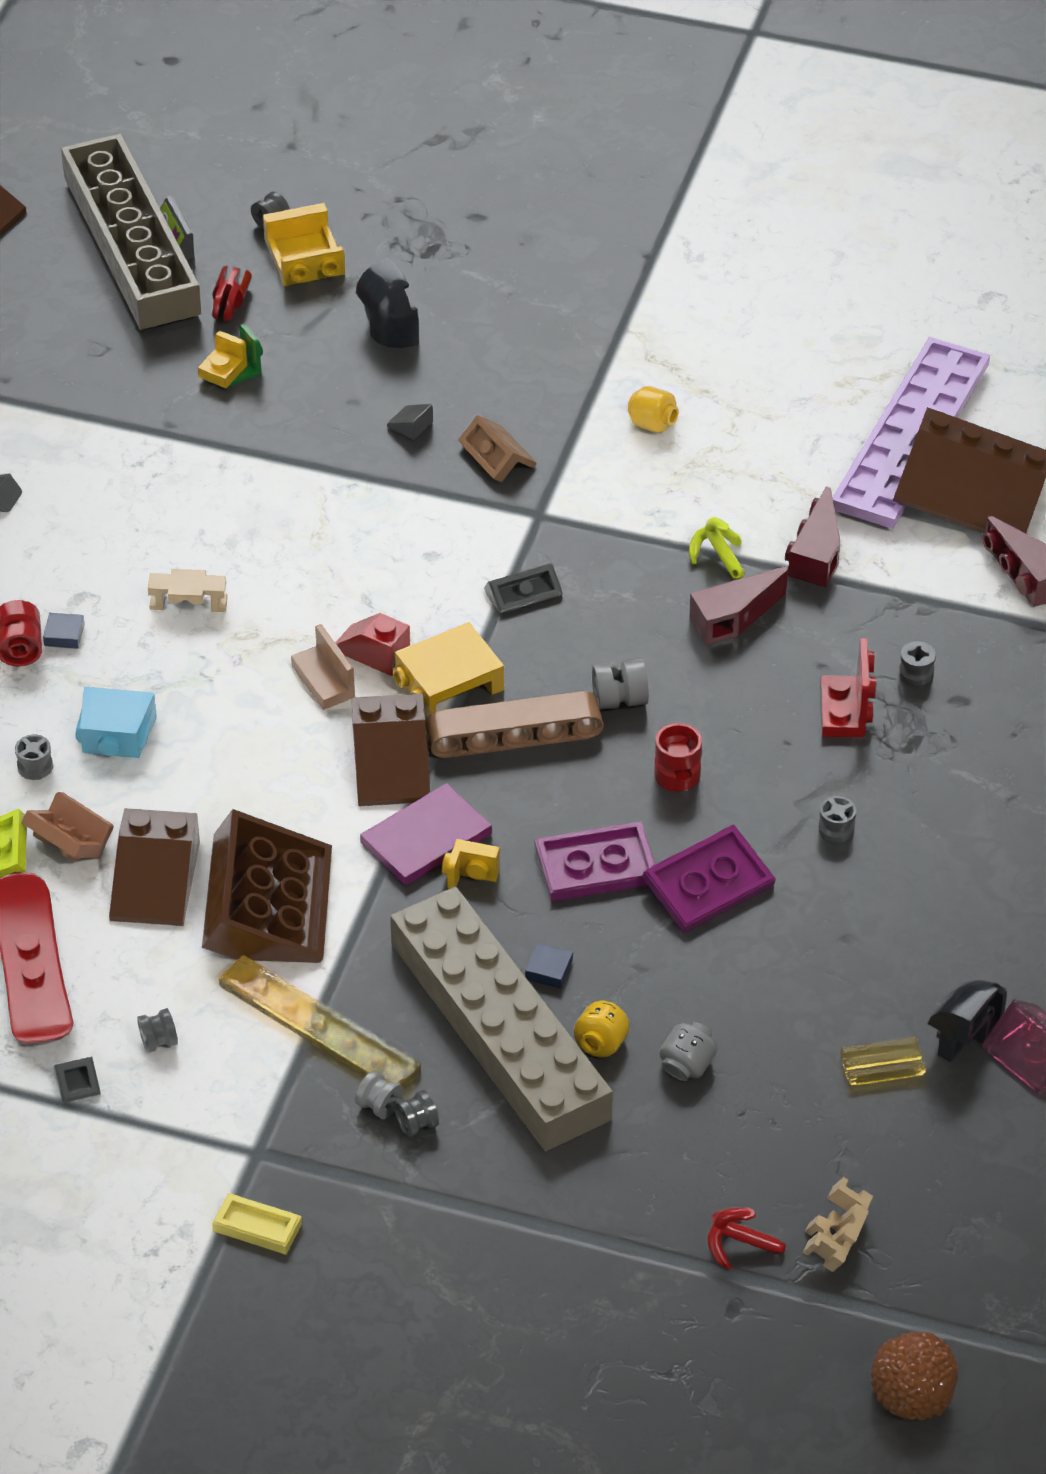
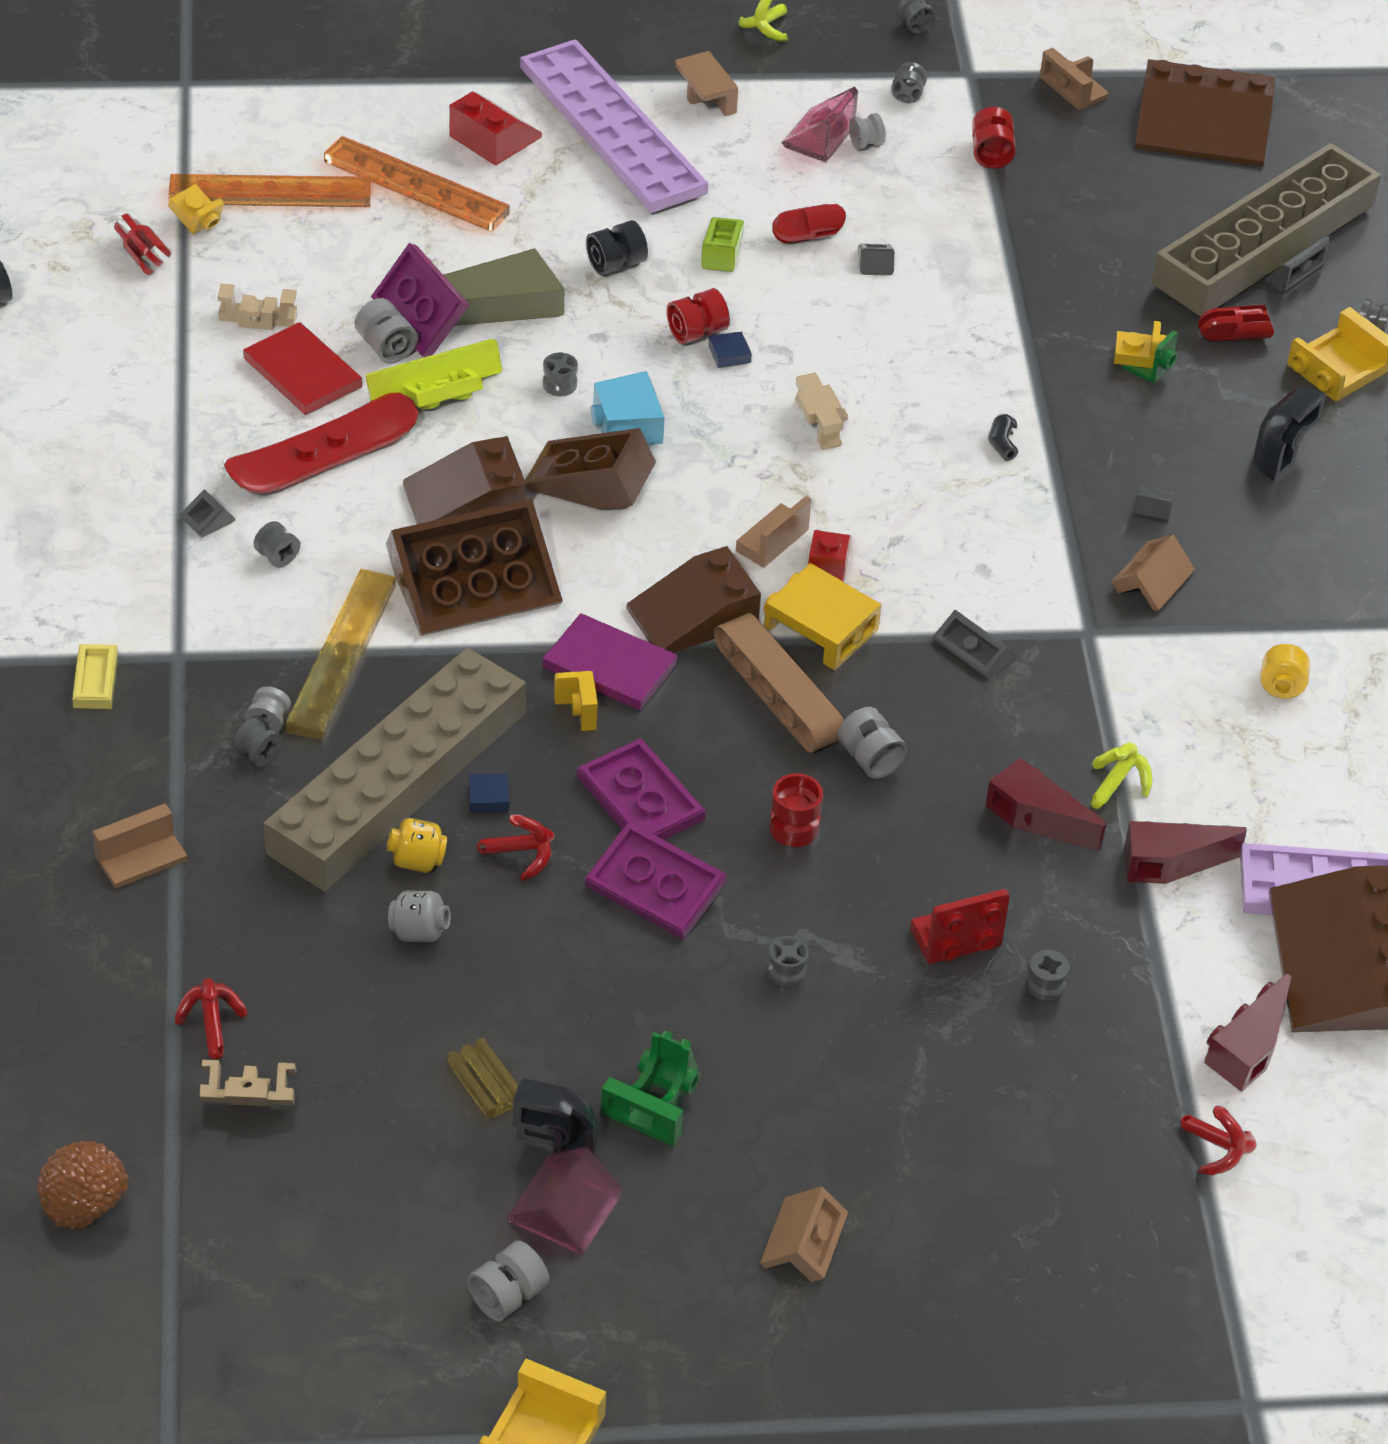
camera: 65 degrees right, 0 degrees up
(70, 827) = (479, 414): nougat bracket -> none
(180, 767) = (594, 469): none -> reddish brown slope
(280, 488) = (999, 436): none -> black arm
(508, 1242) = (138, 846): none -> medium nougat panel
(635, 938) = (539, 839): none -> red piece
(936, 925) = (667, 1066): none -> green tile

